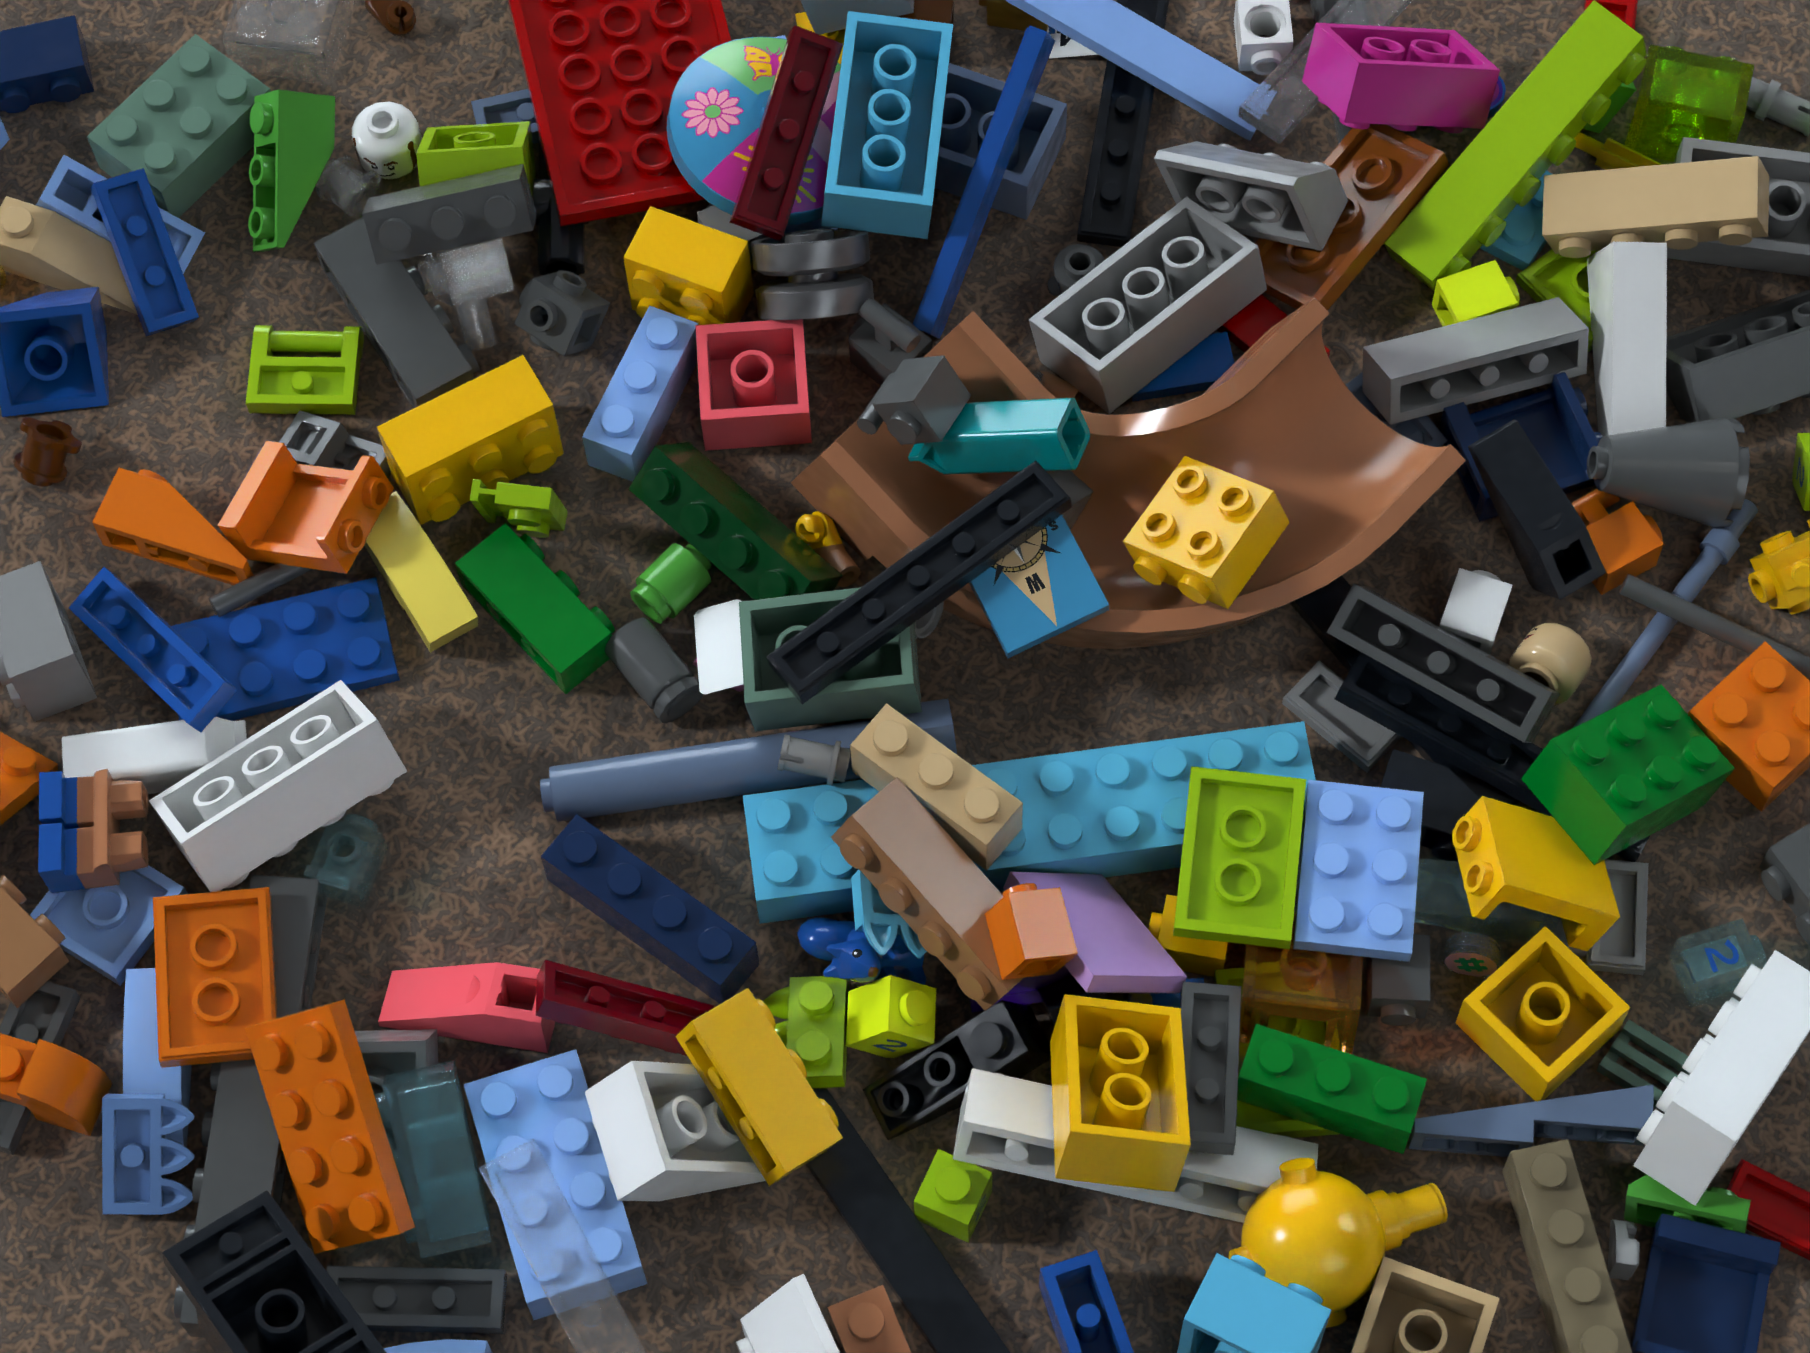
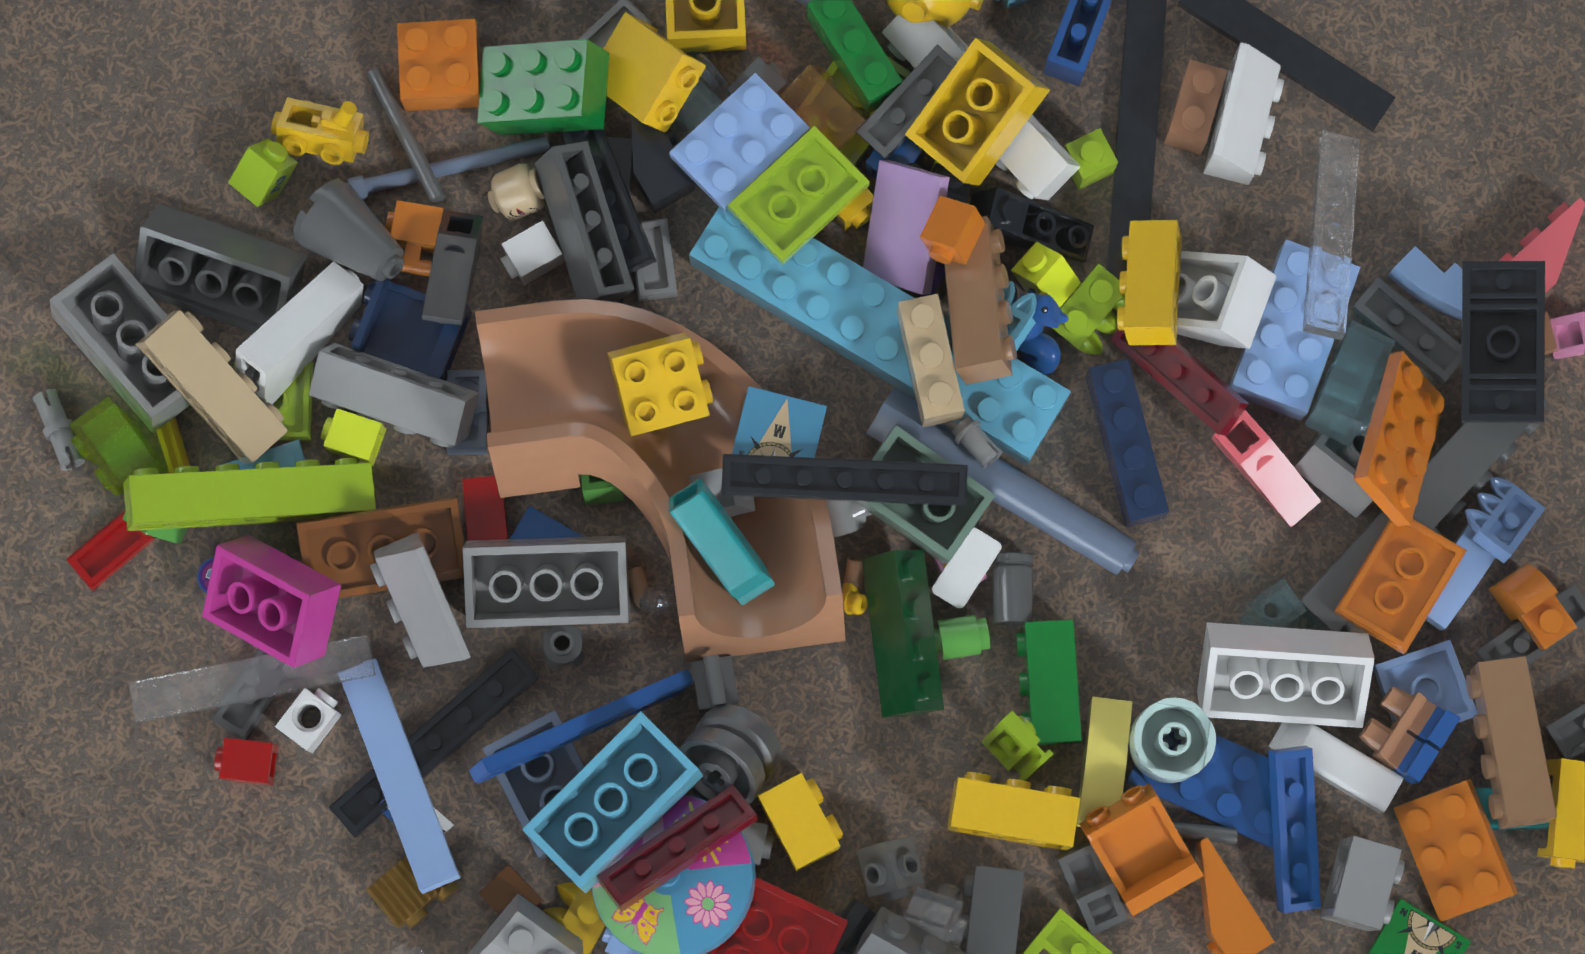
camera: 145 degrees left, 15 degrees up
(352, 621) = (1189, 726): none -> light aqua brick
(641, 394) = (884, 772): light blue brick -> none
(753, 384) = (817, 721): coral brick -> none
(917, 401) = (753, 600): dark grey brick -> none

